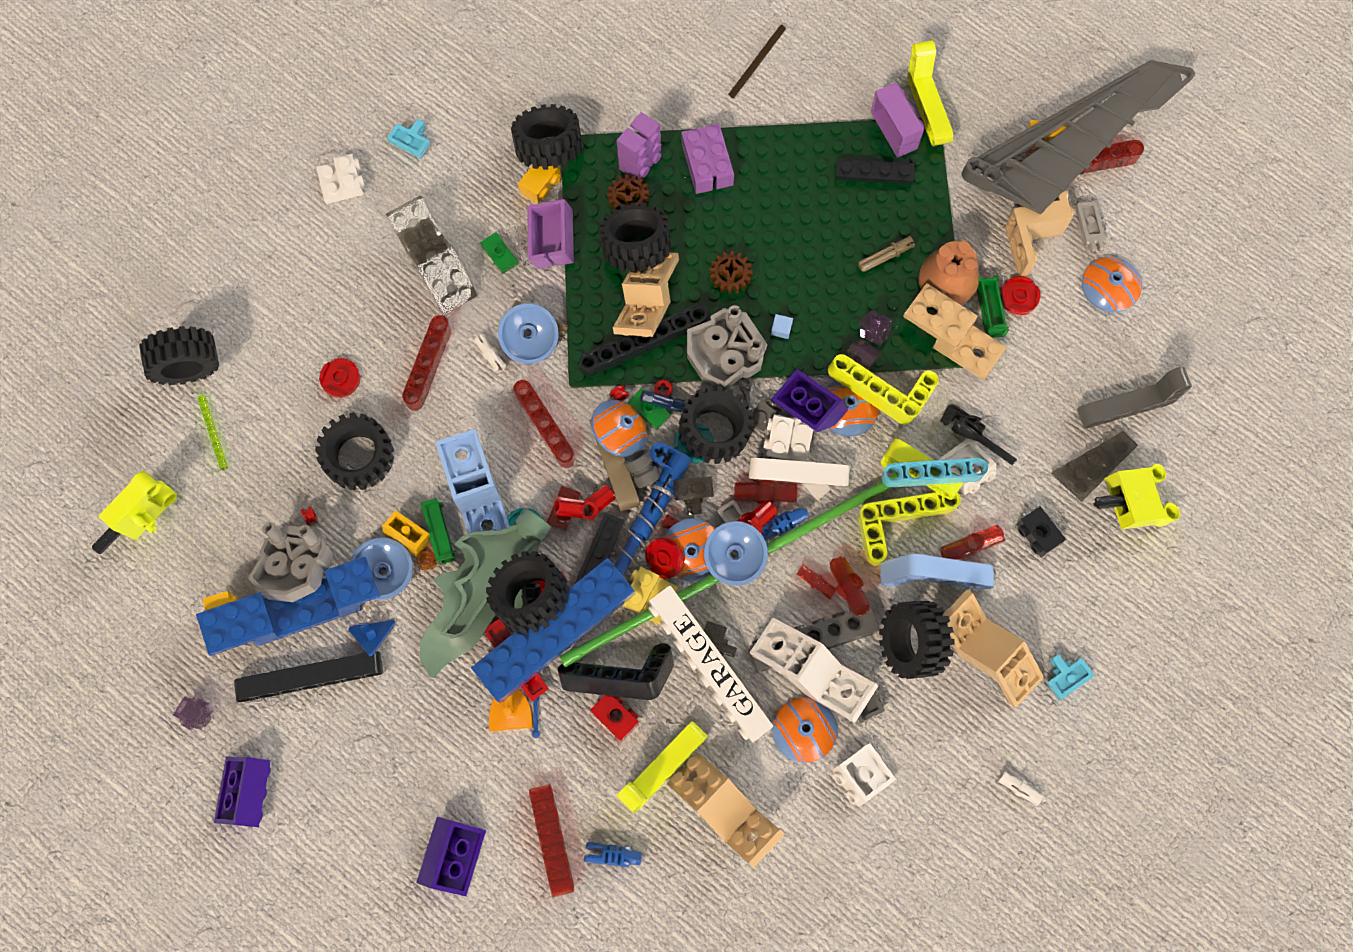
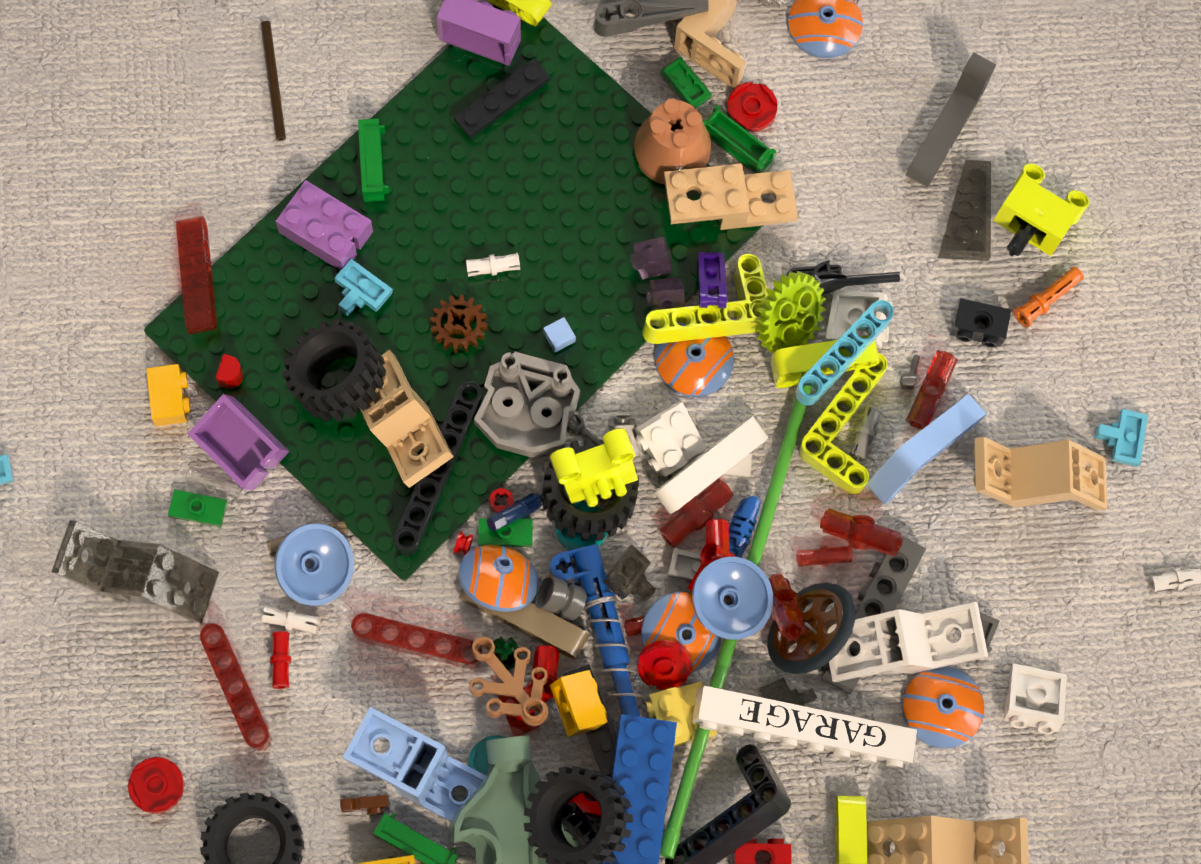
camera: 50 degrees left, 0 degrees up
(436, 488) = (372, 804): none -> reddish brown plate
(464, 369) = (280, 660): none -> red pin
(543, 123) = (125, 324): black tyre -> none
(567, 491) = (510, 685): none -> medium nougat plant
(581, 193) = (229, 372): none -> red brick
(583, 472) = (505, 651): none -> dark green gear
(595, 534) = (579, 703): none -> yellow brick
(605, 137) = (196, 275): none -> clear red beam
(635, 188) = (285, 323): reddish brown gear -> none
(640, 151) = (251, 273): medium lavender piece -> none
(695, 209) = (361, 288): none -> medium azure hinge
(722, 411) = (596, 469): none -> neon yellow piece
(762, 586) = (785, 608): none -> clear red piece
(765, 626) = (829, 644): none -> wedge
(767, 144) = (371, 160): none -> green container
(781, 257) = (493, 264): none -> white pin
(810, 402) = (659, 387): dark purple slope -> none
(885, 254) = (592, 173): dark tan axle -> none
(897, 368) = (712, 279): none -> dark purple plate
(909, 534) = (865, 432): none -> light grey pin
(927, 424) = (790, 312): none -> lime gear
(932, 634) = (988, 510): black tyre -> none
(963, 528) = (908, 380): none -> dark grey hand
(991, 250) = (685, 83): none -> green plate
(1089, 552) = (1040, 303): none -> orange pin

